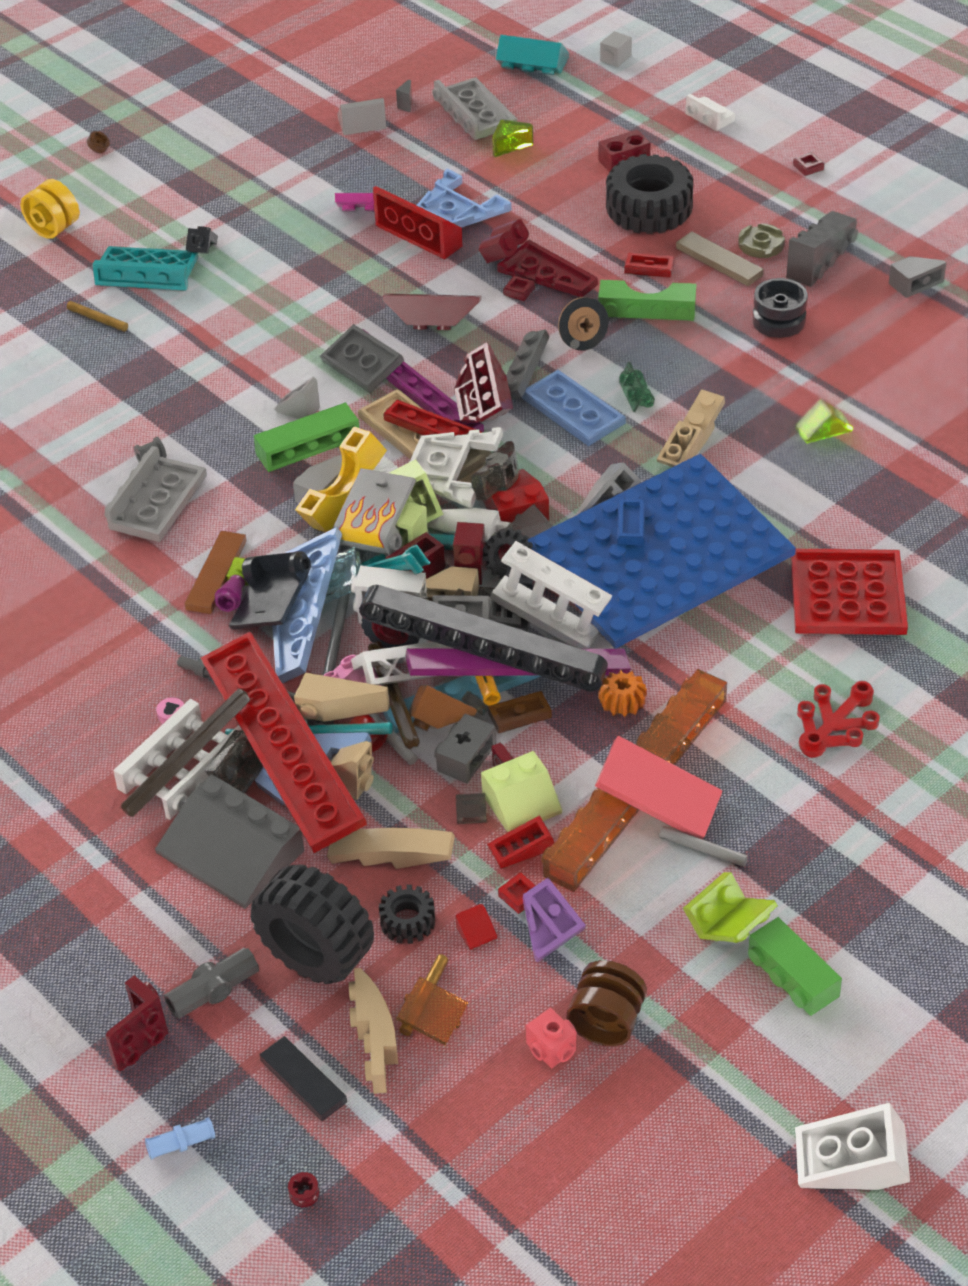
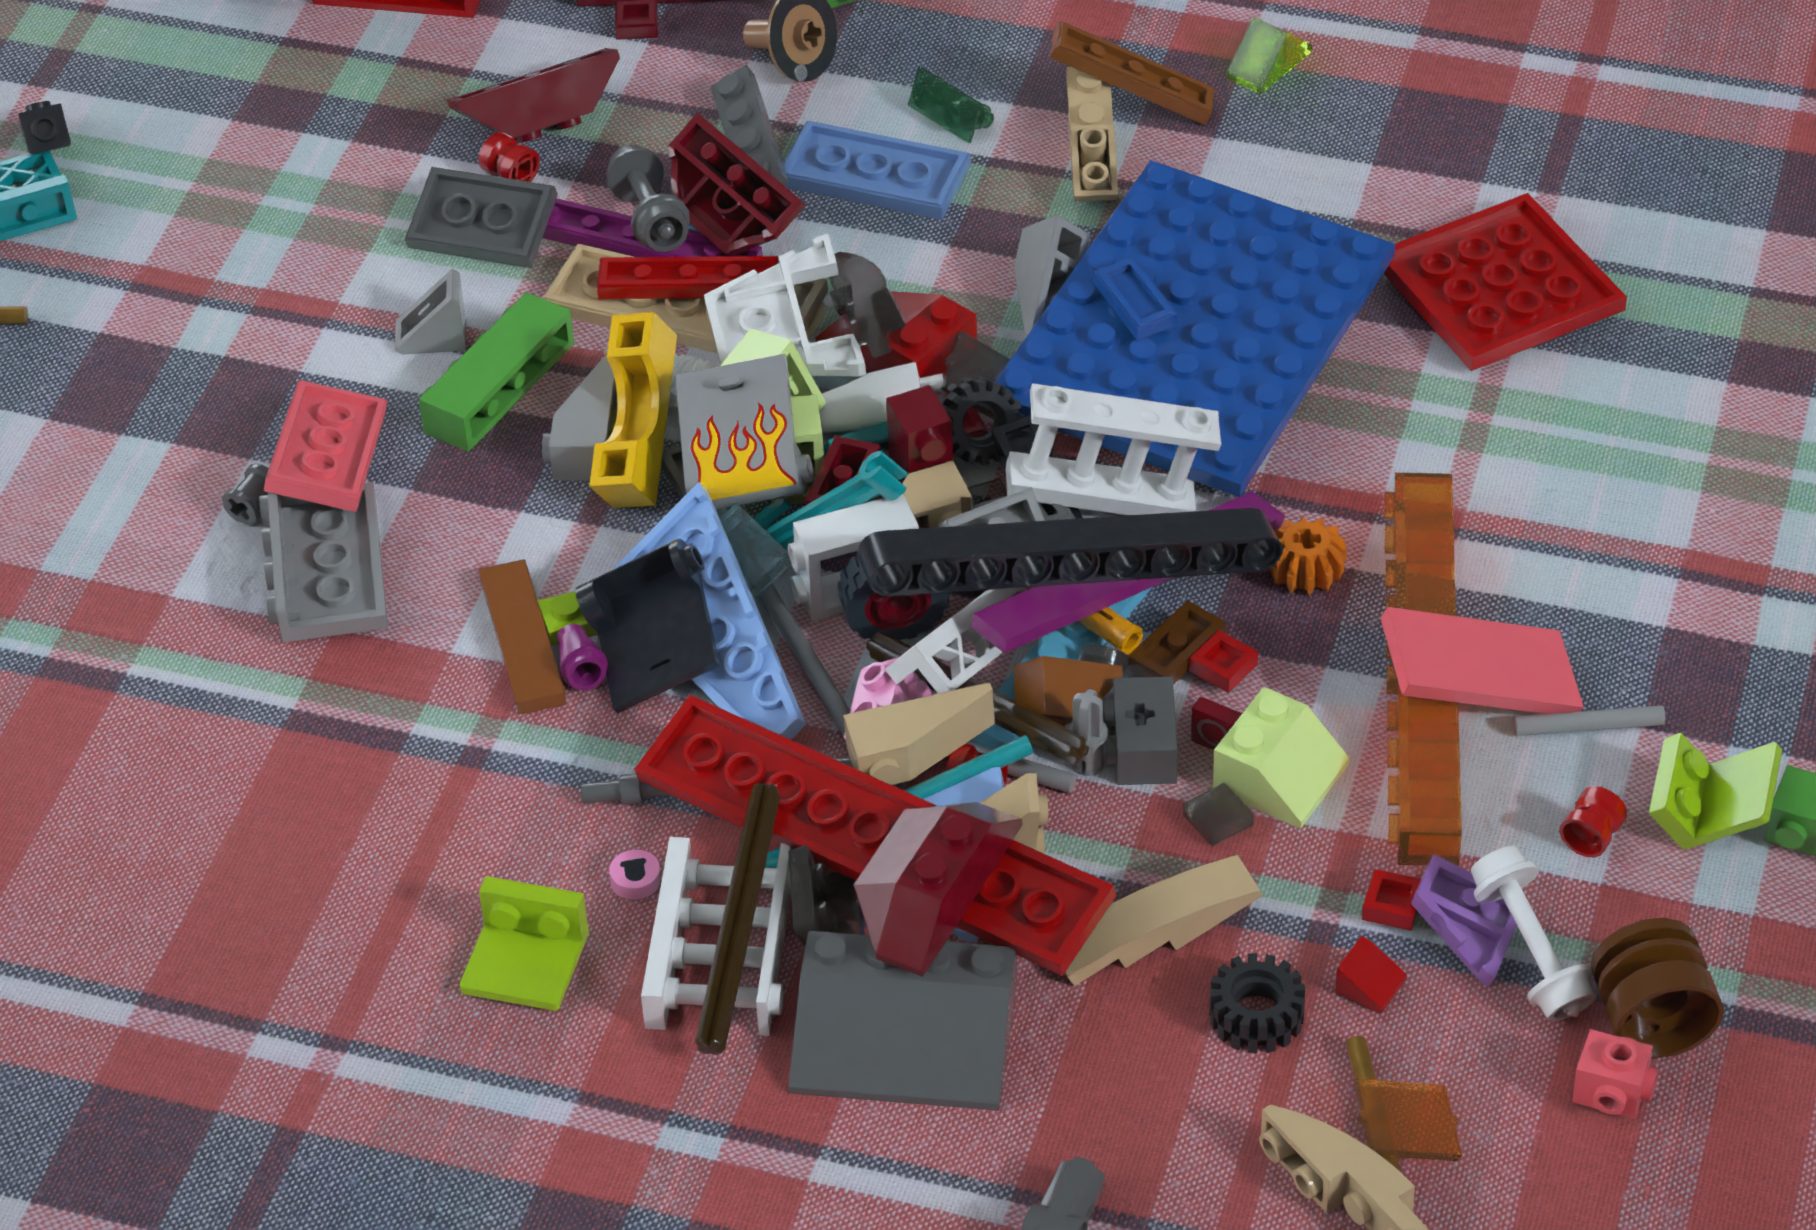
camera: 30 degrees left, 0 degrees up
(91, 724) = (526, 943): none -> lime bracket
(195, 441) = (326, 446): none -> coral tile
(280, 772) = (929, 877): none -> dark red wedge
(312, 923) = (1171, 1068): black tyre -> none
(397, 335) = (507, 159): none -> red wheel
(429, 735) = (1089, 724): none -> light grey axle
(436, 390) = (660, 218): none -> dark grey piece
(525, 831) = (1341, 794): red slope -> none
(536, 730) = (1223, 661): none -> red plate
(570, 905) = (1503, 876): none -> white piece
(657, 899) = (1593, 821): none -> red wheel
(733, 405) = (1132, 72): none -> dark orange tile
(815, 742) = (1625, 511): red plant -> none

